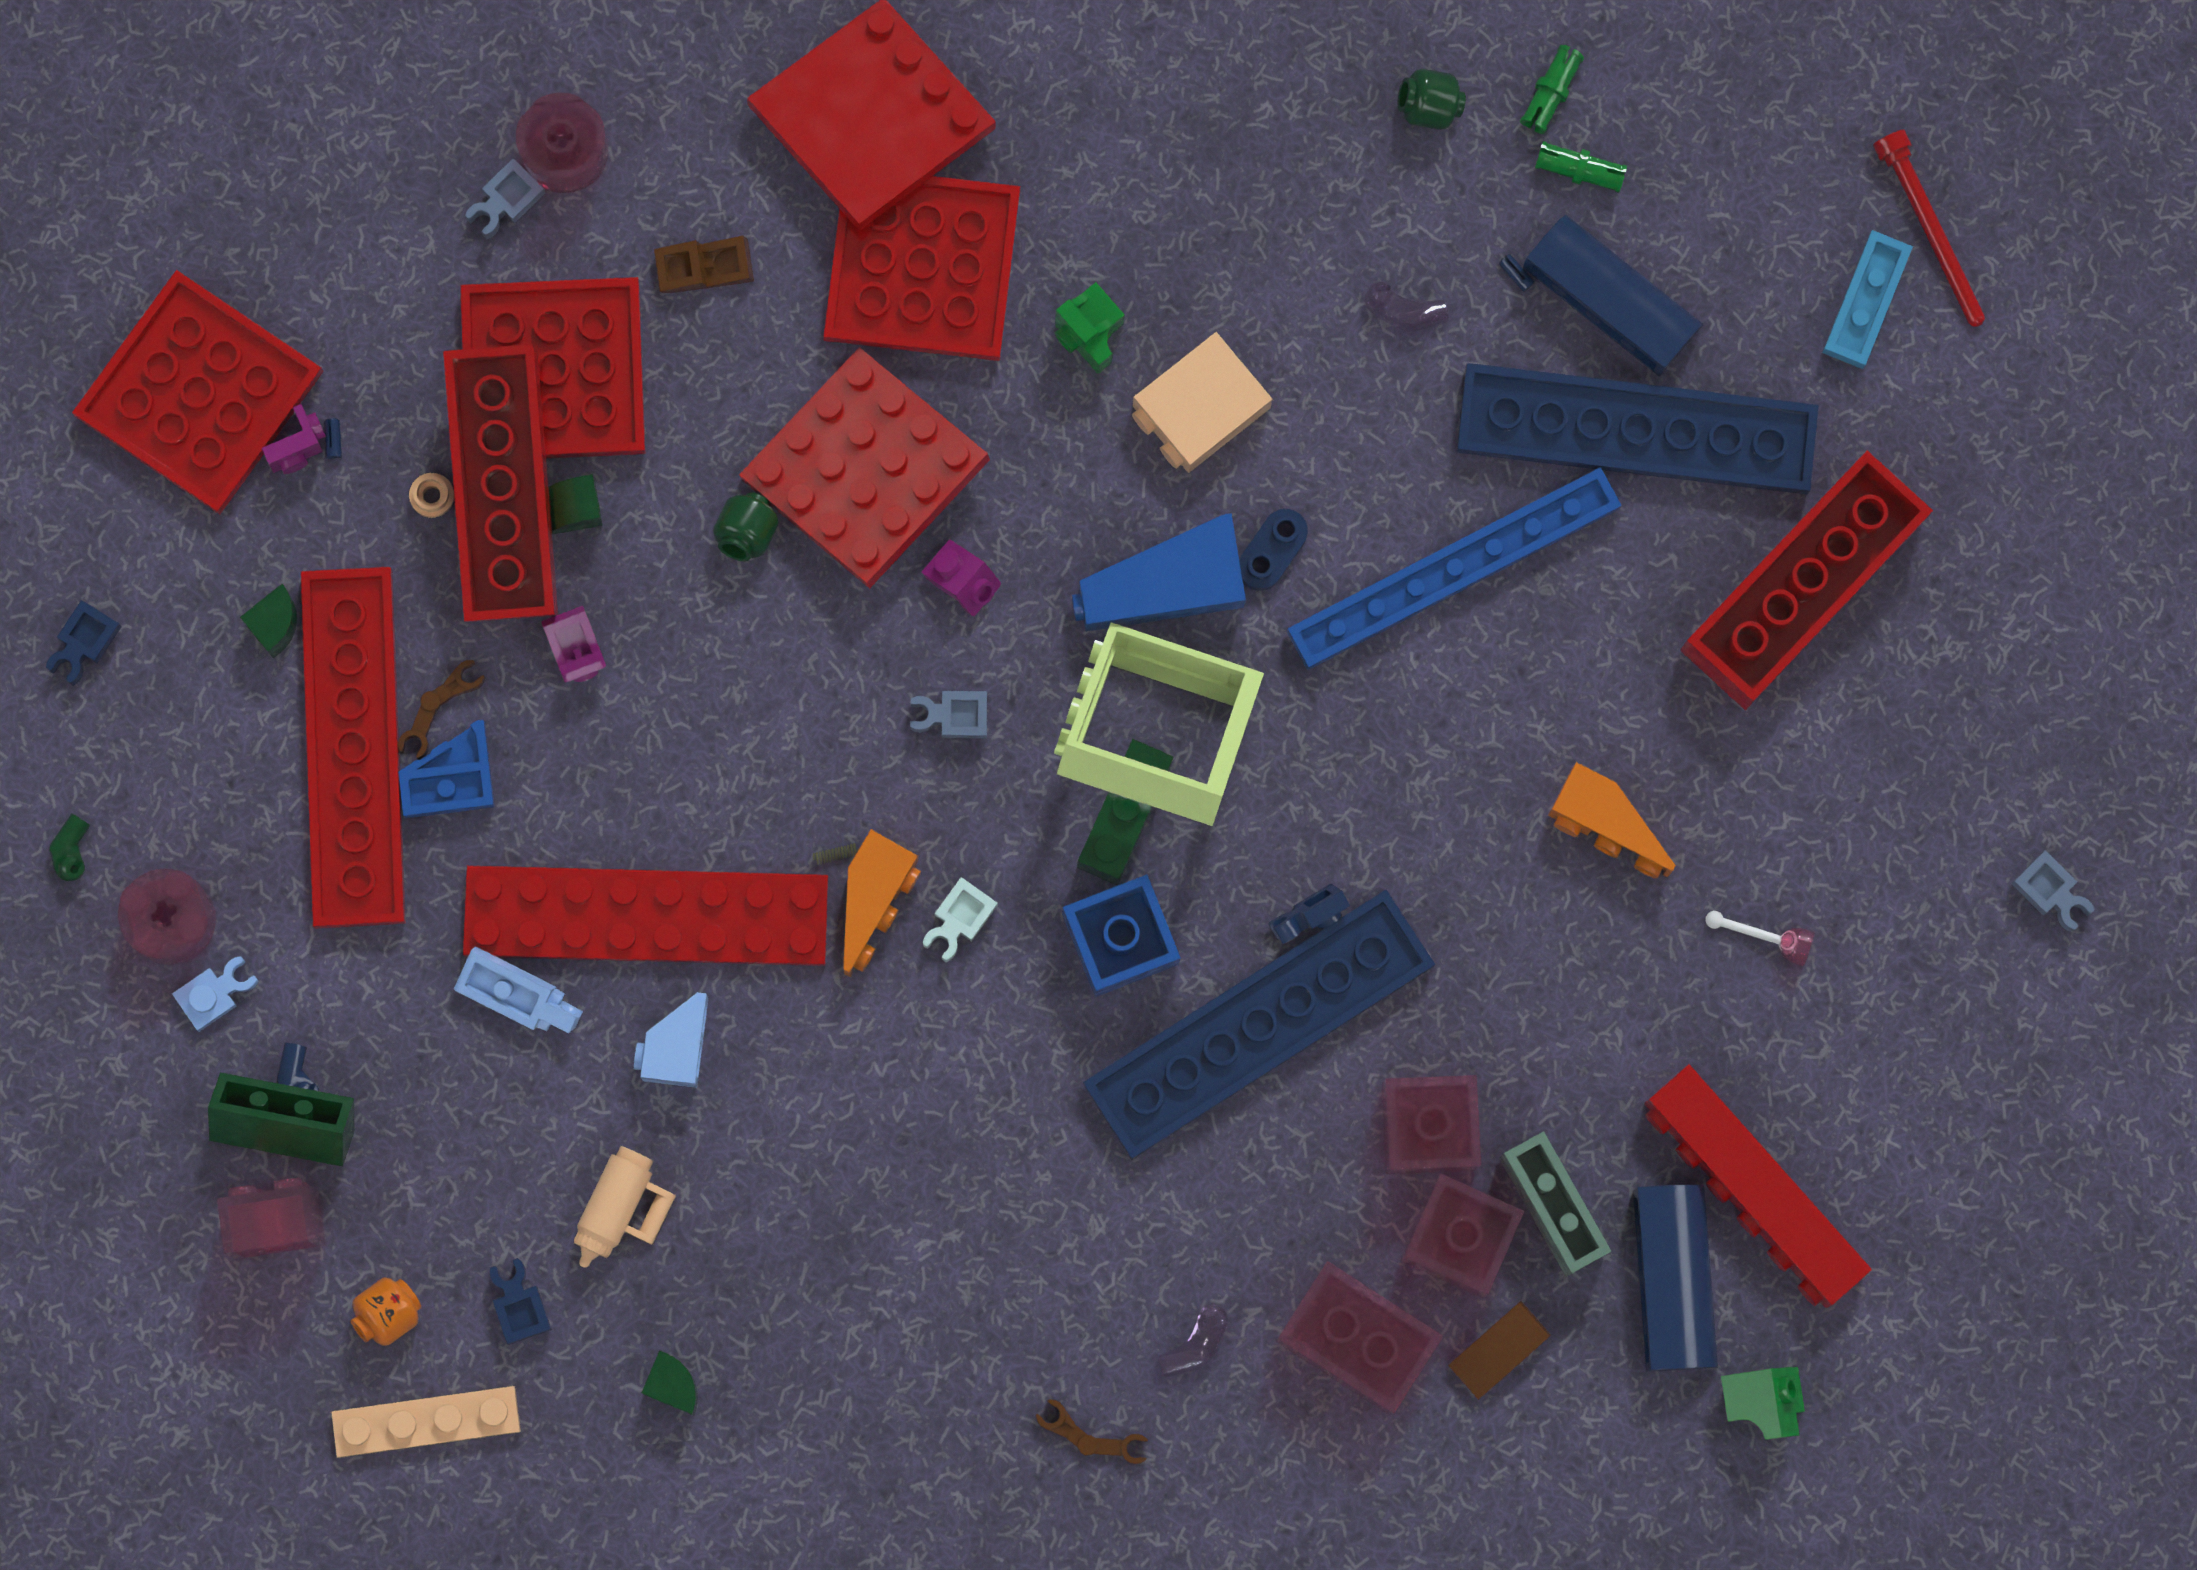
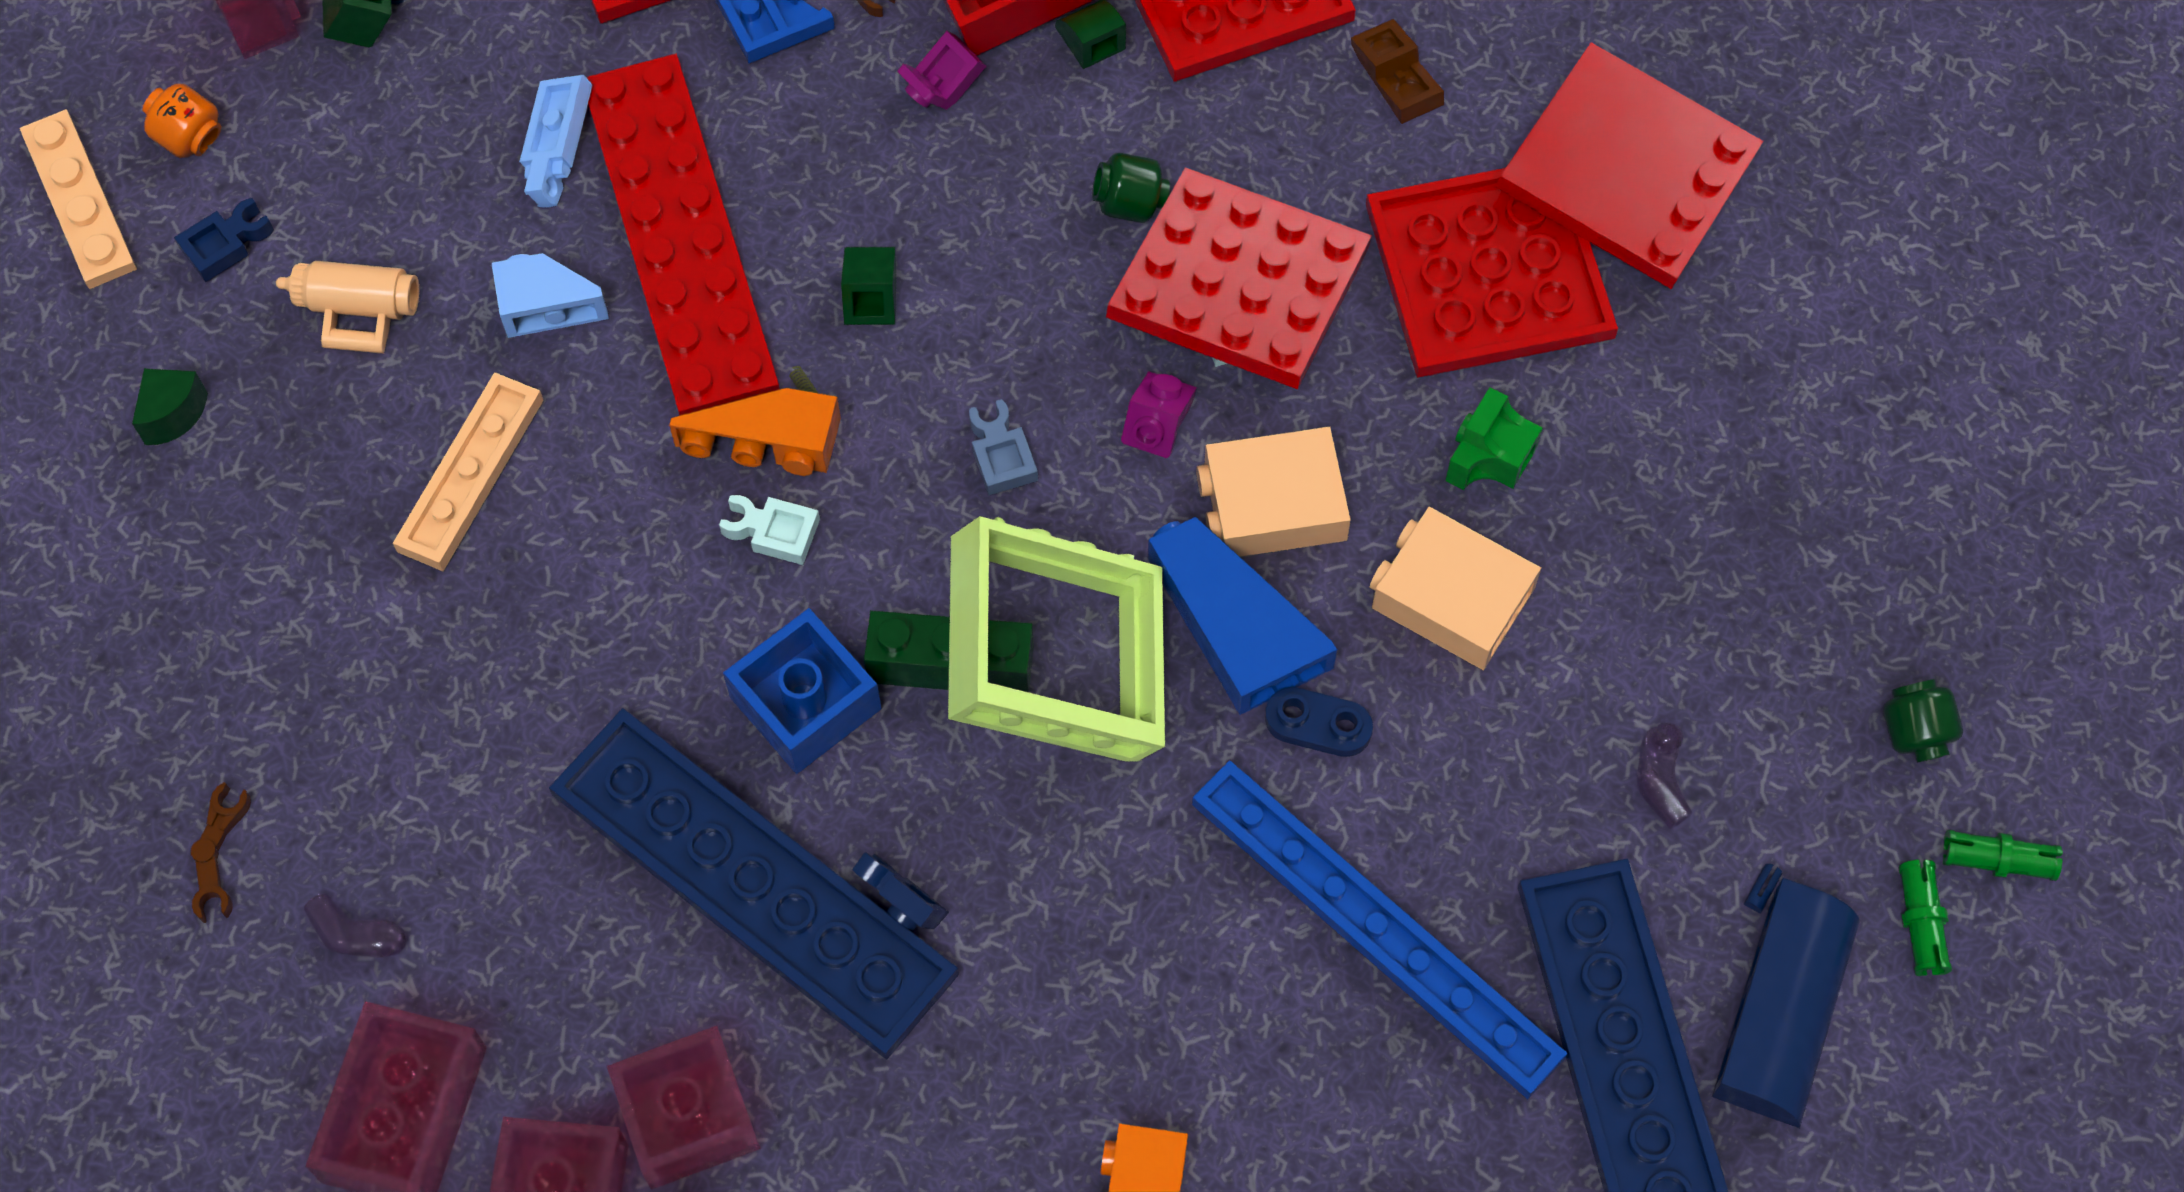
camera: 80 degrees right, 15 degrees down
(760, 771) = (869, 285): none -> dark green brick
(820, 1150) = (468, 472): none -> light nougat plate
(1070, 511) = (1275, 492): none -> light nougat brick

